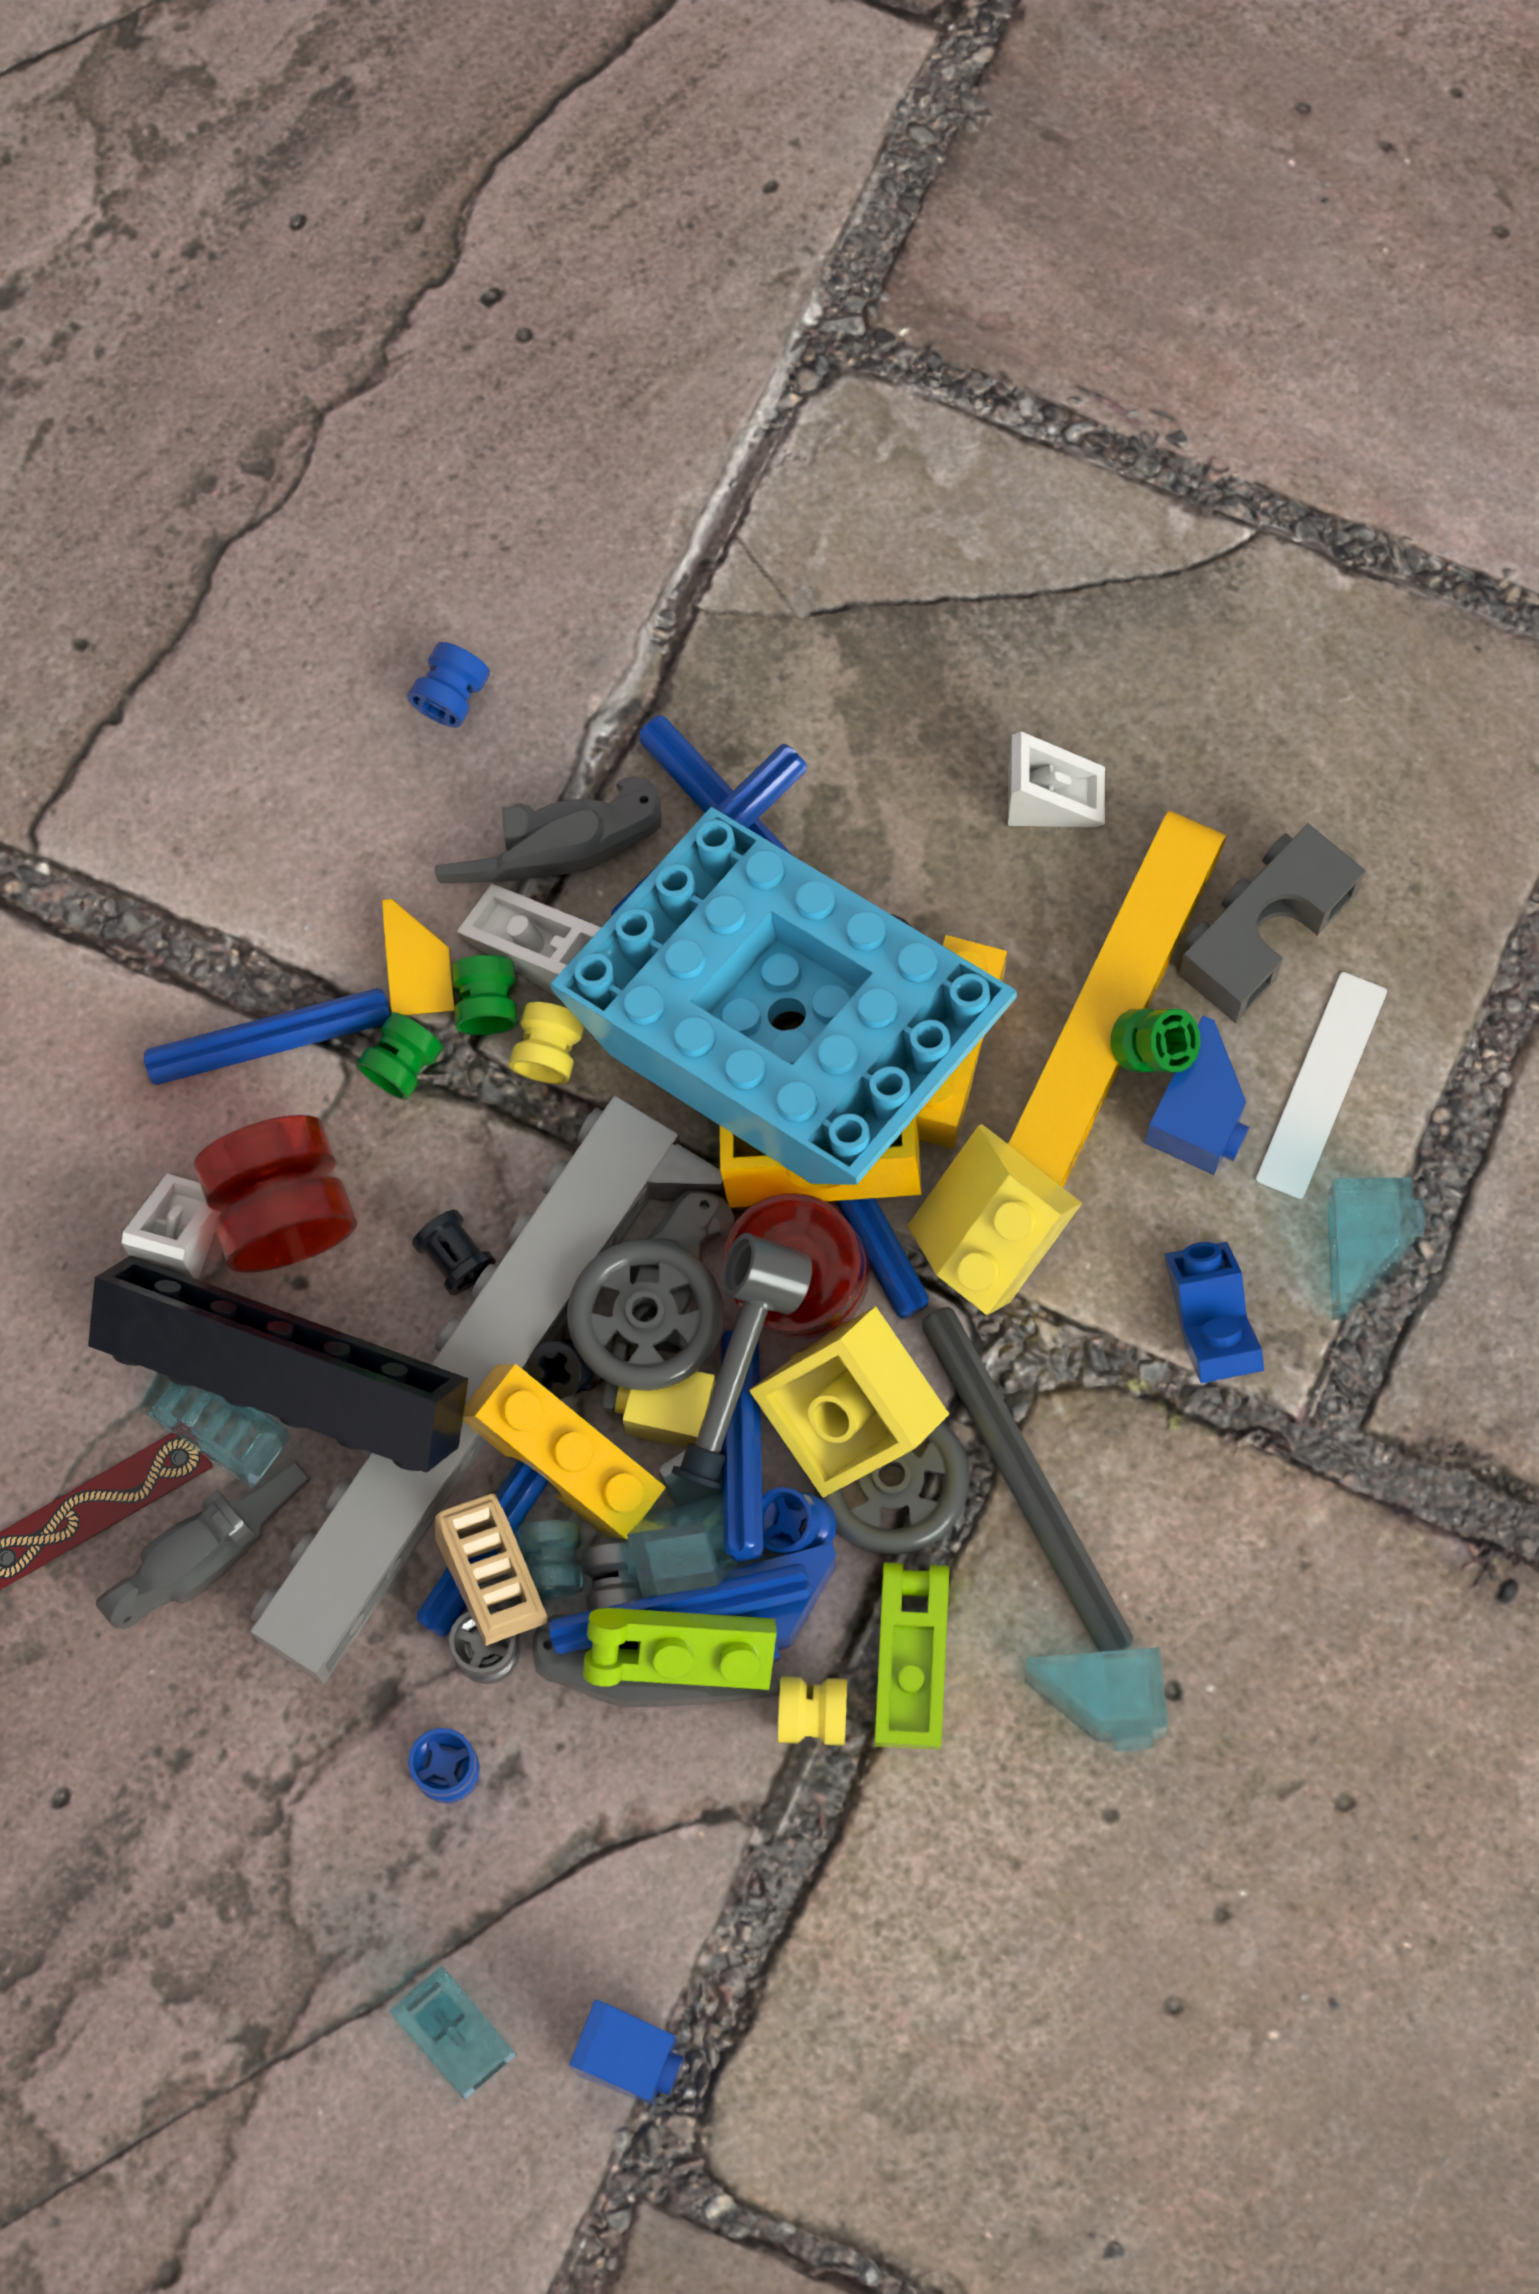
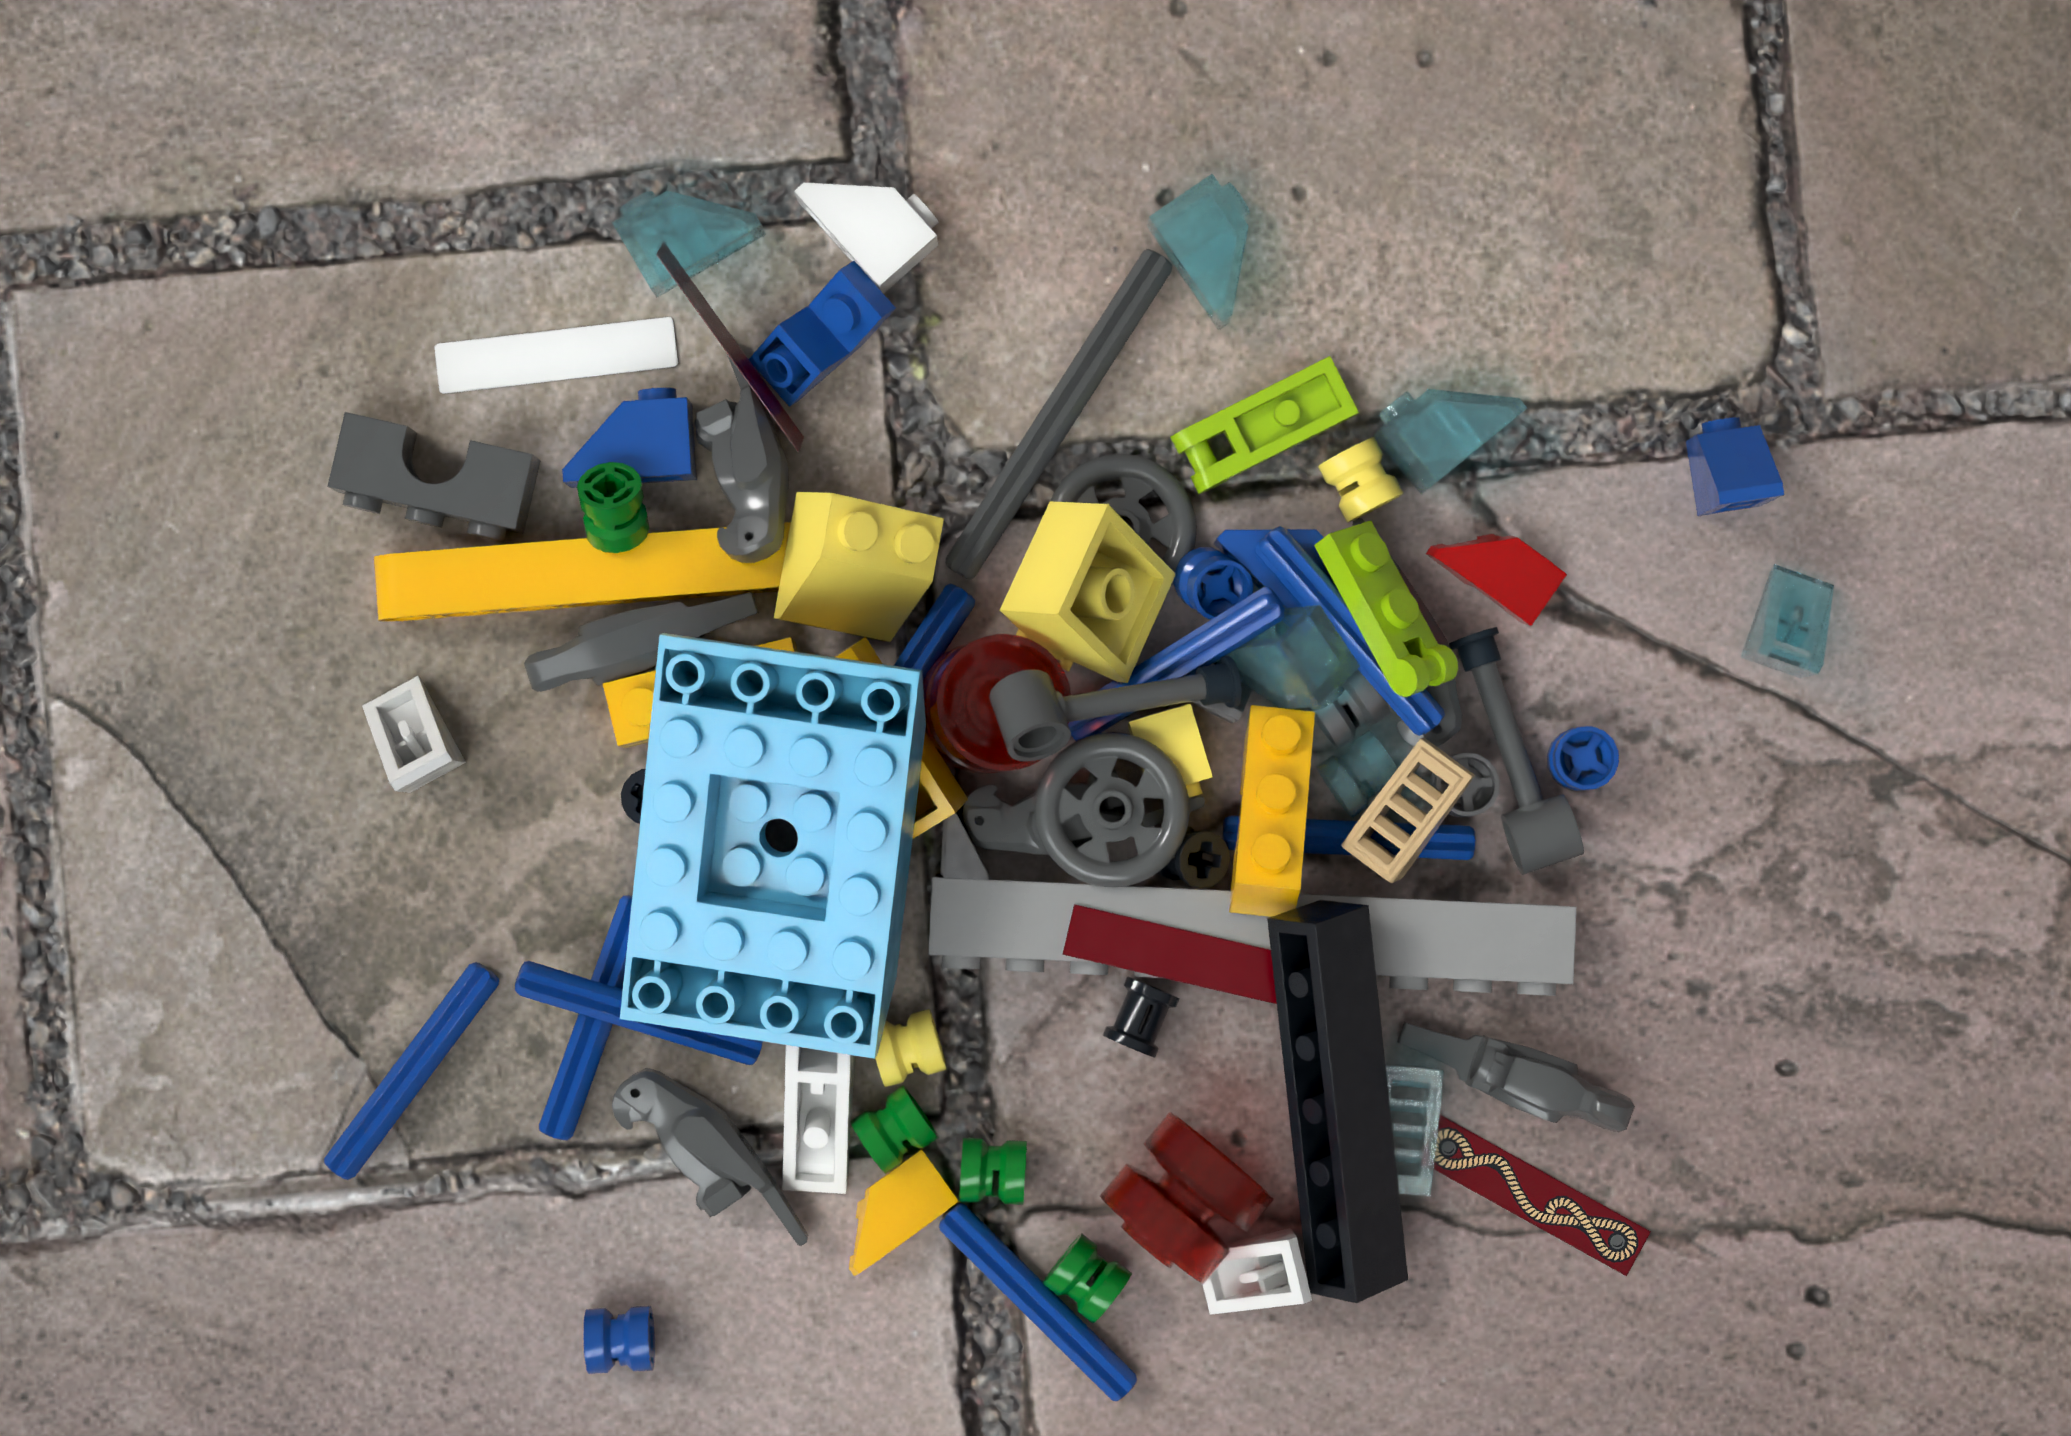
camera: 125 degrees left, 15 degrees up
(274, 1078) = (1075, 1269): none -> green wheel
(404, 1690) = (1541, 829): none -> dark grey piece
(495, 1292) = (1170, 953): none -> dark red sticker
(654, 1794) = (1504, 572): none -> red slope
(772, 645) = (411, 1071): none -> blue axle
(815, 1809) = (1441, 430): none -> clear light blue slope
(1027, 1024) = (629, 641): none -> dark grey animal
(1133, 1179) = (749, 471): none -> dark grey animal
(1244, 1218) = (730, 346): none -> sticker
(1283, 1404) = (872, 227): none -> white slope

